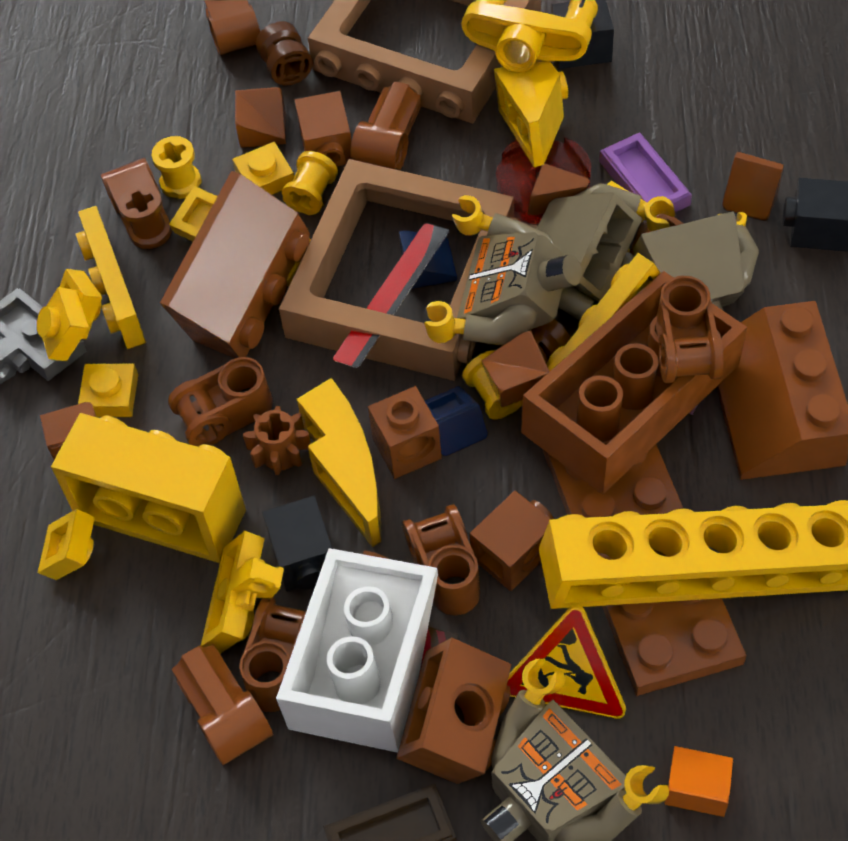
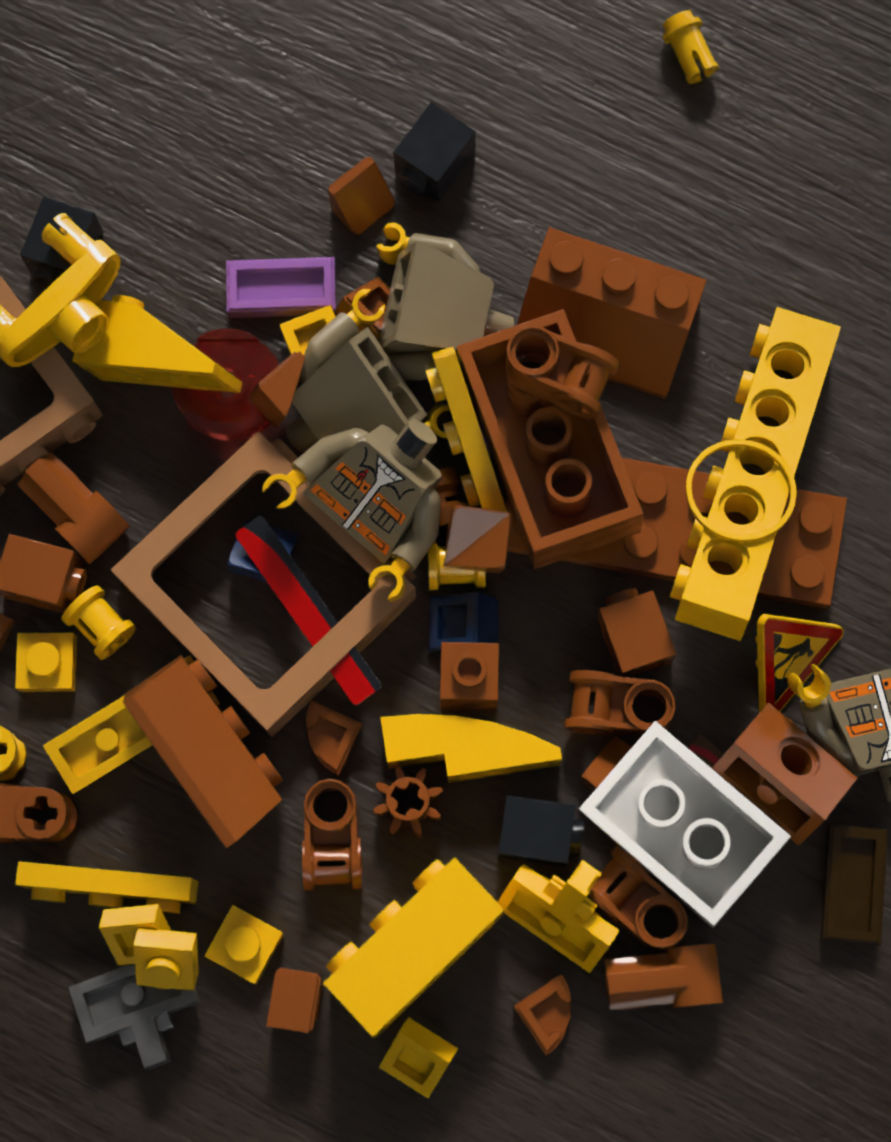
camera: 65 degrees left, 20 degrees up
(151, 632) = (547, 1013): none -> dark orange tile
(304, 371) = (331, 736): none -> dark orange tile
(662, 570) = (753, 445): none -> yellow piece

